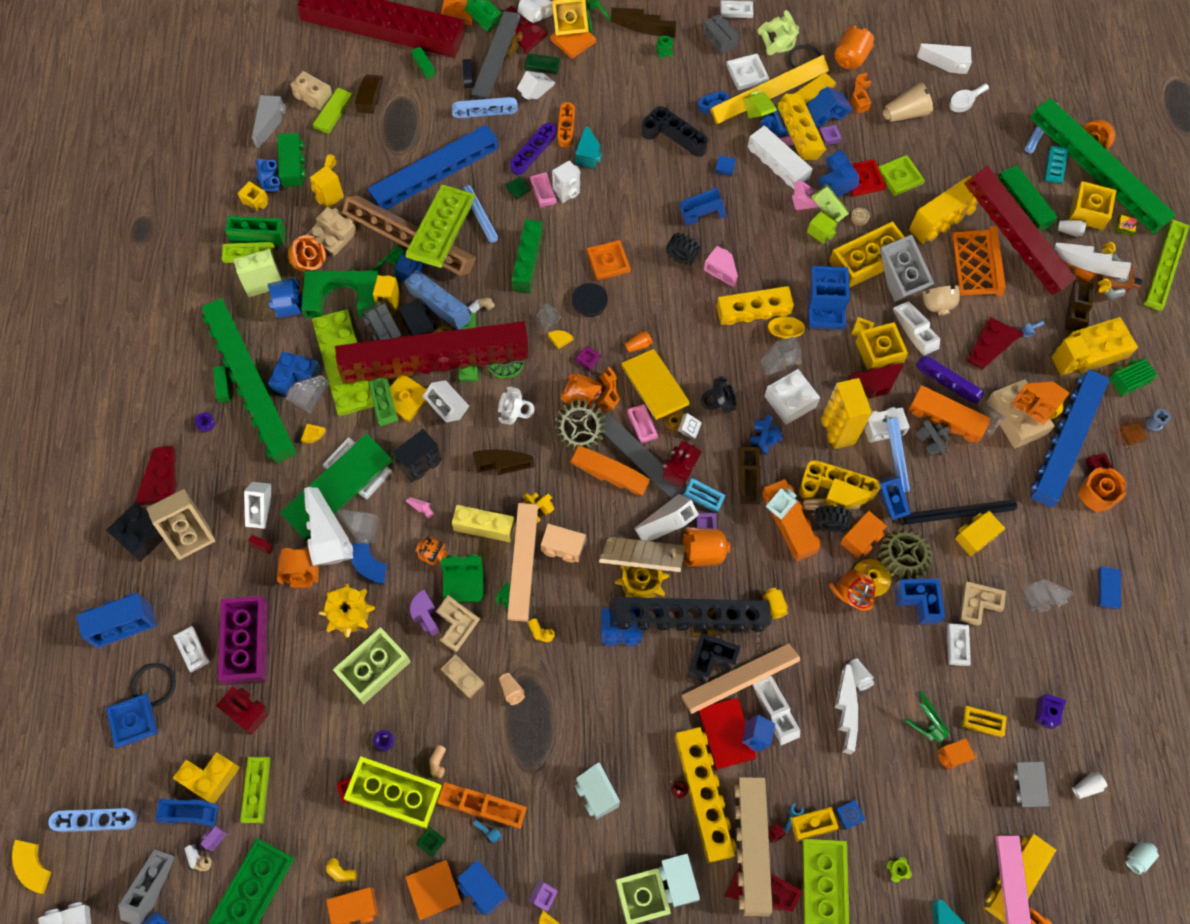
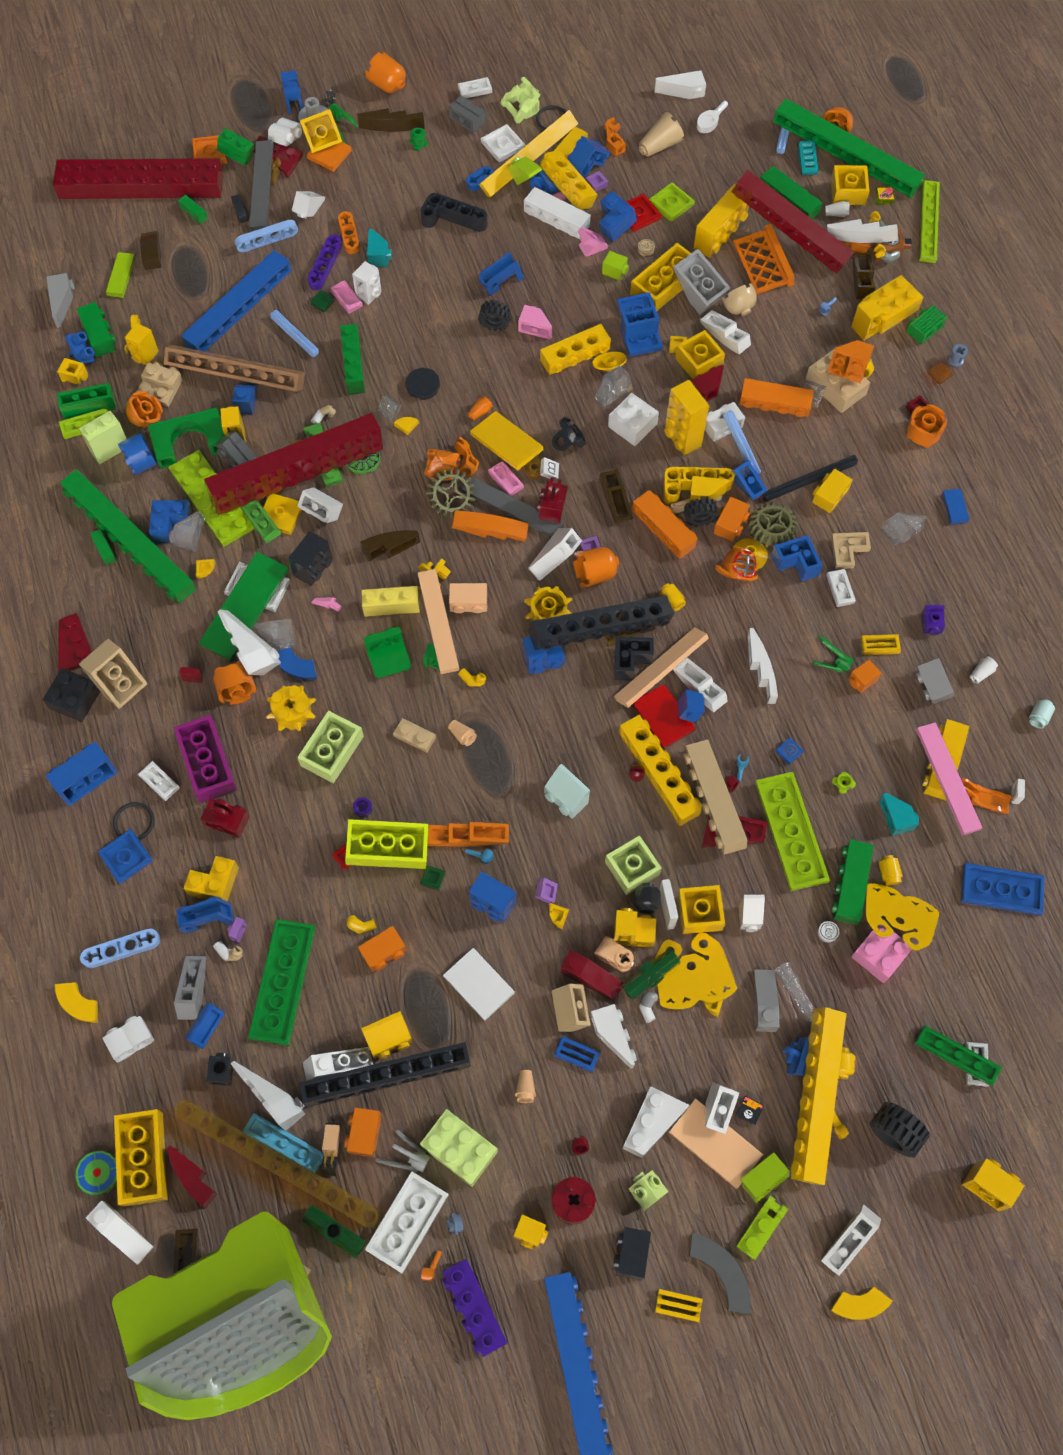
camera: 15 degrees left, 0 degrees up
(204, 422) = (99, 584): dark purple tile -> none
(255, 790) = (260, 881): lime tile -> none
(257, 504) = (175, 641): white slope -> none
(311, 90) = (93, 261): tan brick -> none
(392, 257) = (225, 392): green plant -> none
(416, 319) = (266, 440): black brick -> none
(421, 609) = (360, 690): medium lavender brick -> none
(431, 550) = (350, 637): orange head -> none
(433, 890) = (448, 915): orange tile -> none
(434, 762) = (414, 810): light nougat arm -> none
(437, 300) = (281, 418): medium blue brick -> none
(440, 226) = (263, 350): lime plate -> none
(461, 622) = (398, 690): tan tile -> none
(511, 404) = (382, 491): white tile -> none
(542, 63) = (307, 182): dark green tile -> none
(588, 358) = (437, 435): magenta tile -> none
(608, 260) = (428, 344): orange tile -> none
(643, 554) = (543, 585): tan door -> none
(680, 881) = (662, 840): light aqua slope -> none
(688, 489) = (581, 527): medium azure tile -> none
(725, 165) = (509, 233): blue tile -> none
(769, 435) = (623, 457): blue hips -> none
(782, 502) = (653, 508): light aqua bracket -> none
(814, 824) = (761, 766): yellow slope -> none
(830, 203) = (615, 241): lime hinge -> none
(853, 47) = (595, 96): orange cylinder -> none
(861, 675) = (766, 636): white cone -> none
(937, 445) = (763, 417): dark grey hips -> none
(950, 379) = (786, 373): dark purple beam -> none
(992, 342) = (796, 327): dark red wing -> none
(1069, 439) = (886, 391): blue brick -> none

